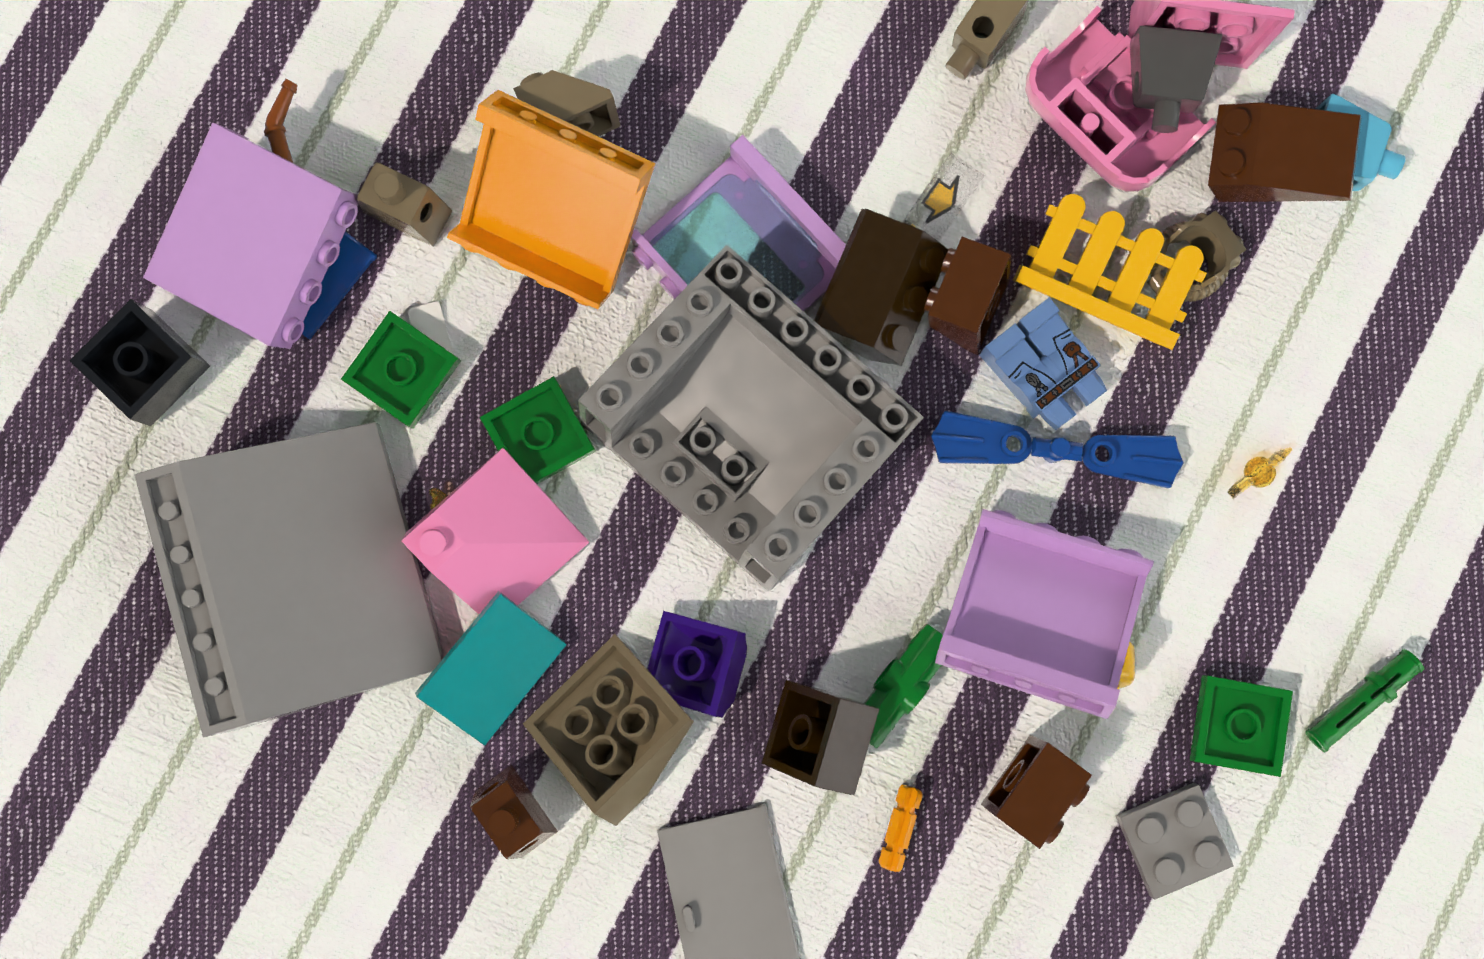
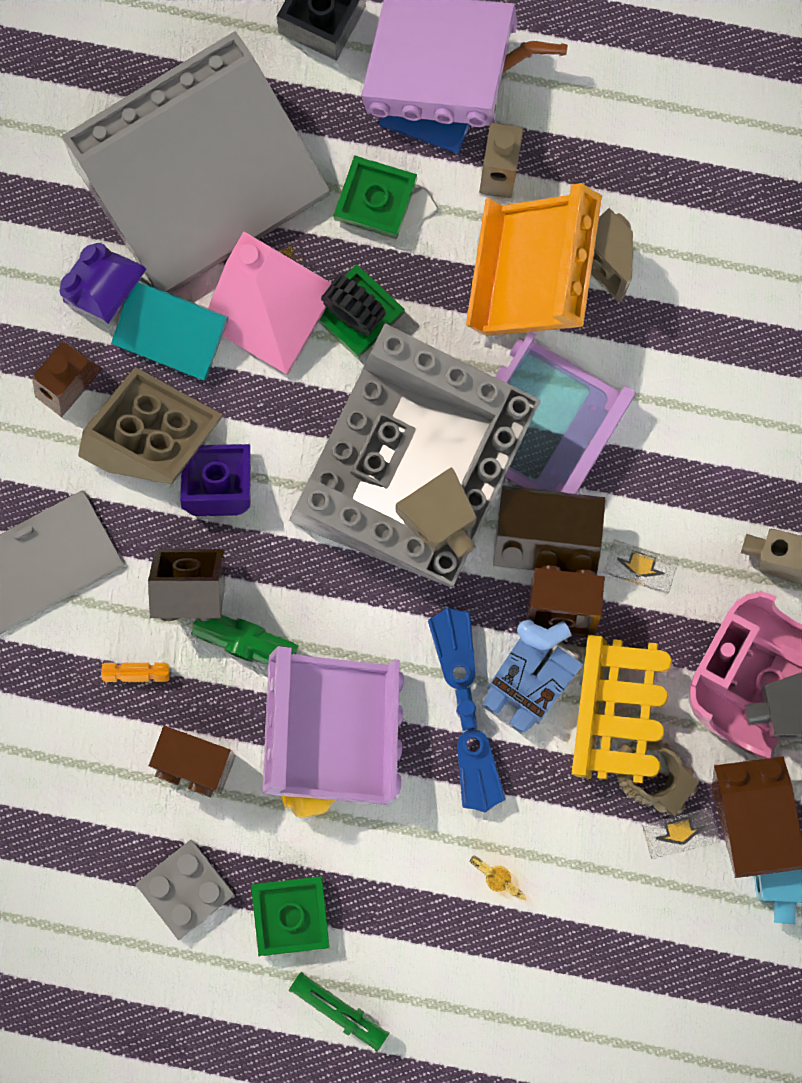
camera: 70 degrees right, 5 degrees down
(405, 737) = (100, 282): none -> dark purple slope
(536, 433) = (353, 305): none -> black tyre
(841, 402) = (440, 514): none -> dark tan torso
(1007, 335) = (540, 637): none -> light blue arm
(1264, 261) = (681, 833): none -> clear tile

